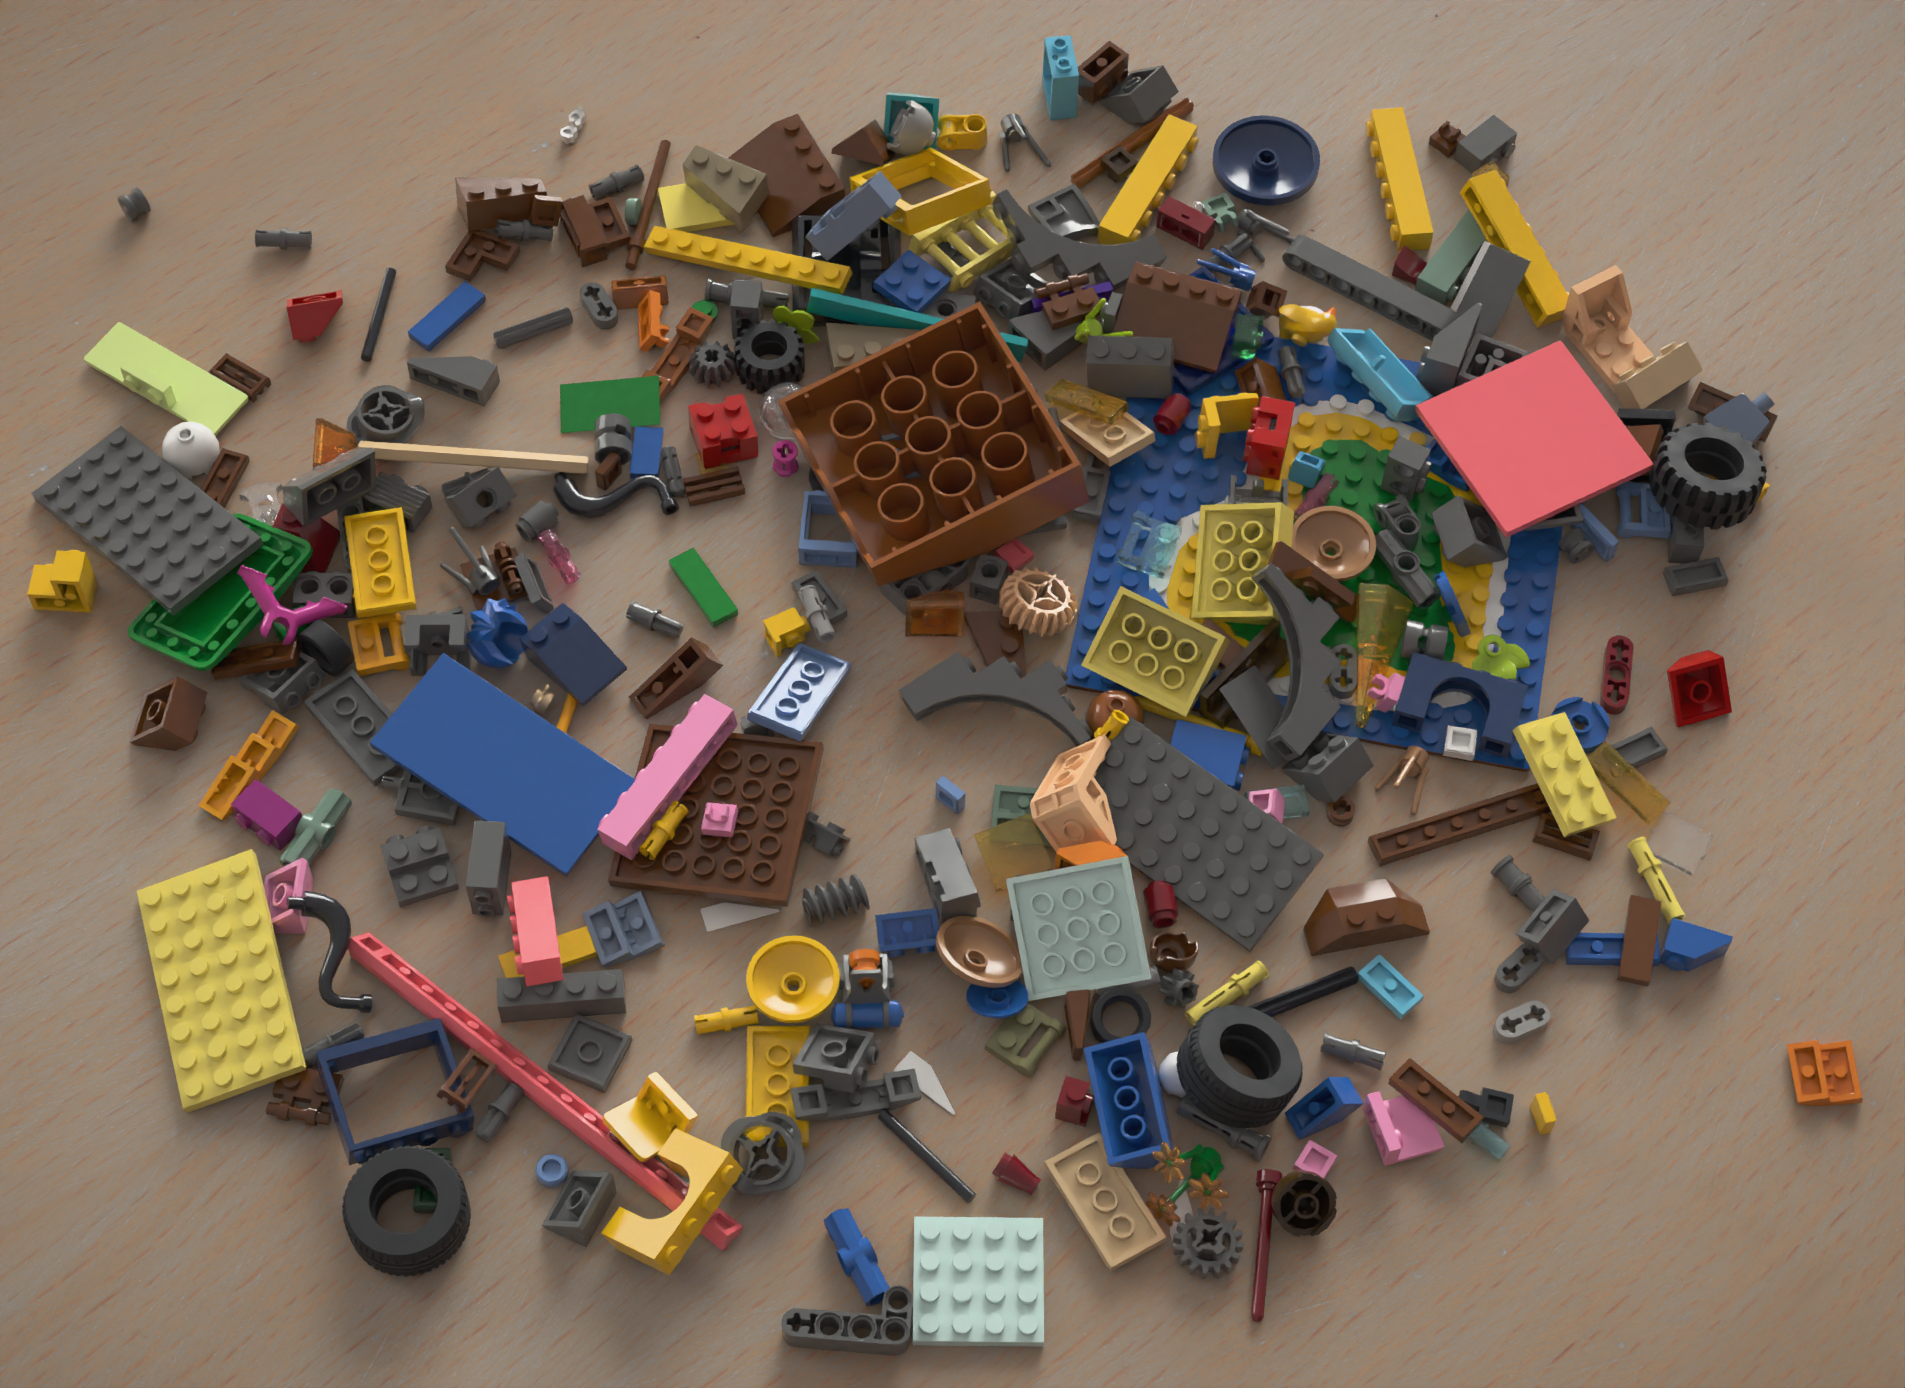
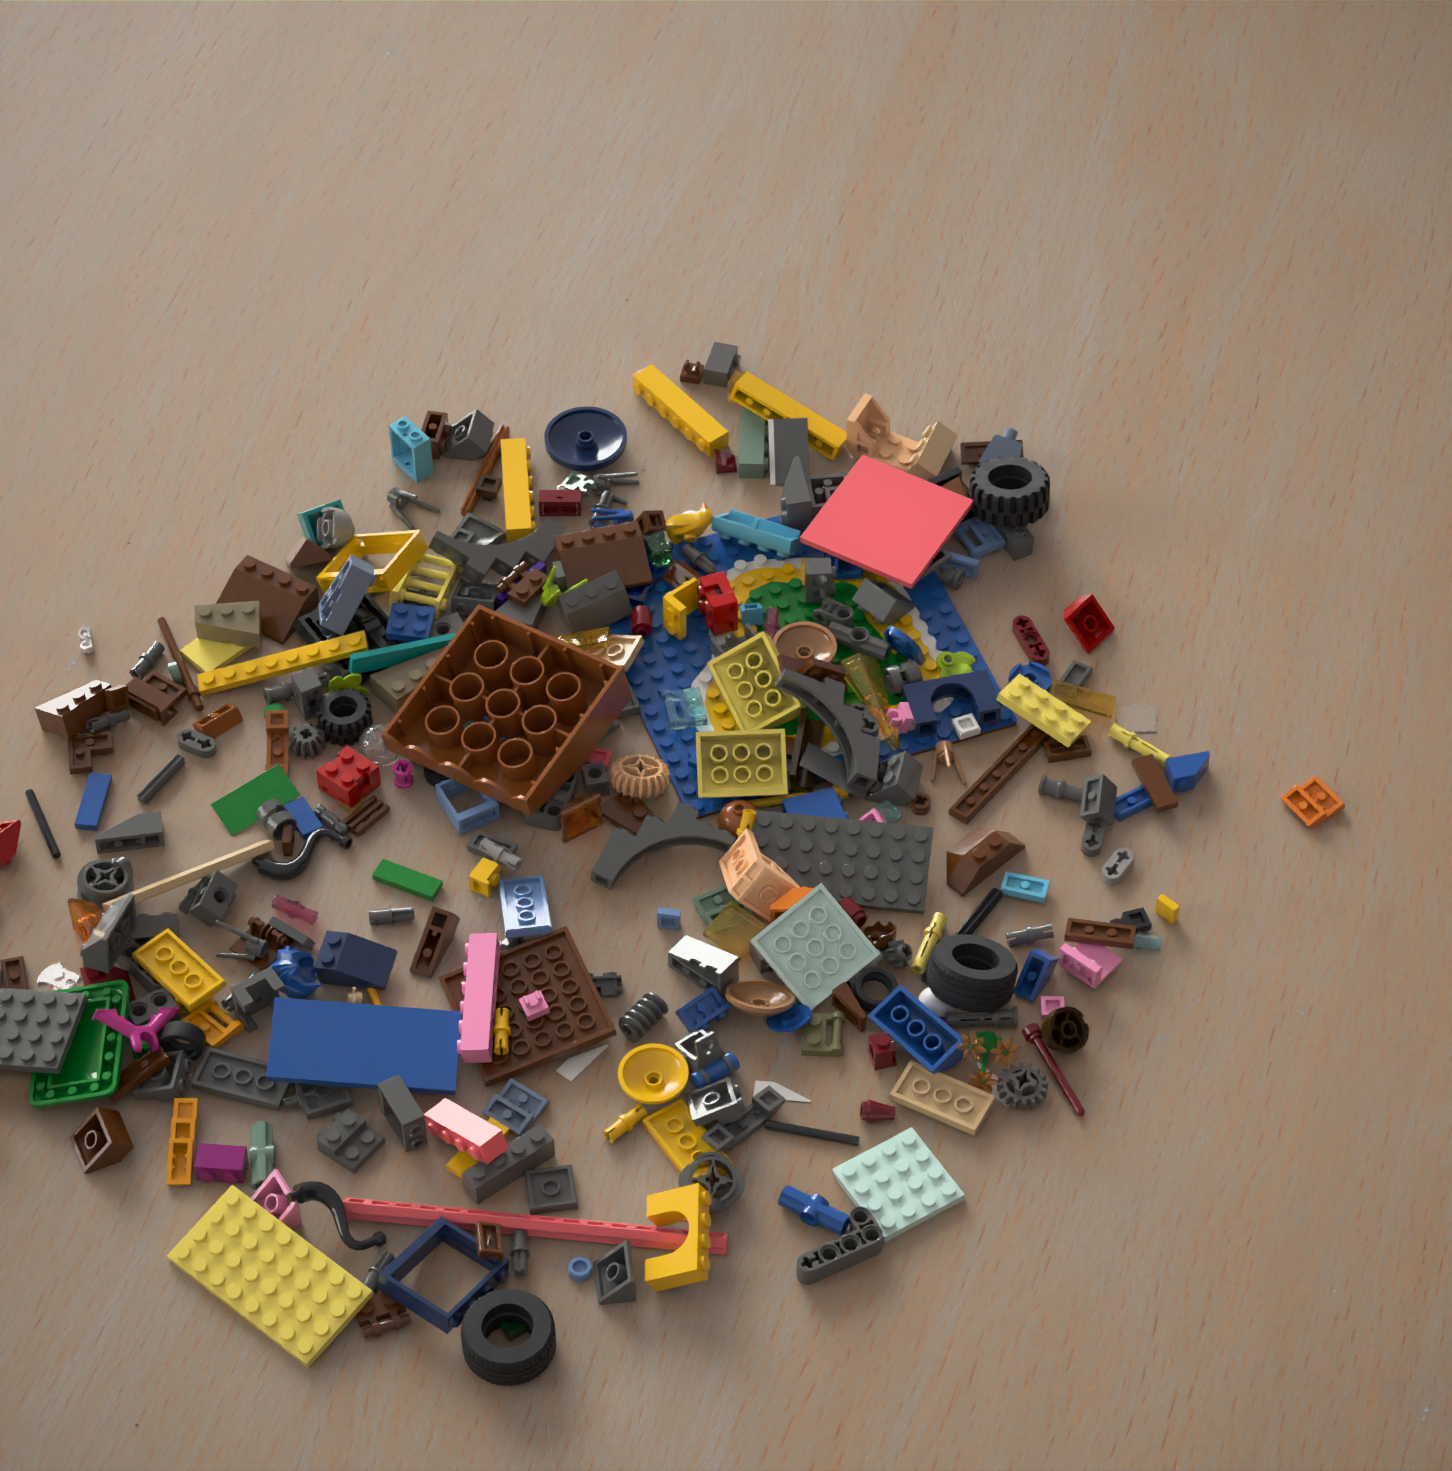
camera: 30 degrees left, 10 degrees down
(536, 520) = (263, 895): dark grey brick -> none
(649, 326) = (242, 735): orange plate -> none
(650, 1118) = (624, 1199): yellow bracket -> none
(864, 960) = (692, 1034): orange wheel -> none
(964, 132) = (367, 515): yellow piece -> none
(1367, 287) = (710, 486): dark grey beam -> none
(1695, 576) = (1037, 560): dark grey tile -> none

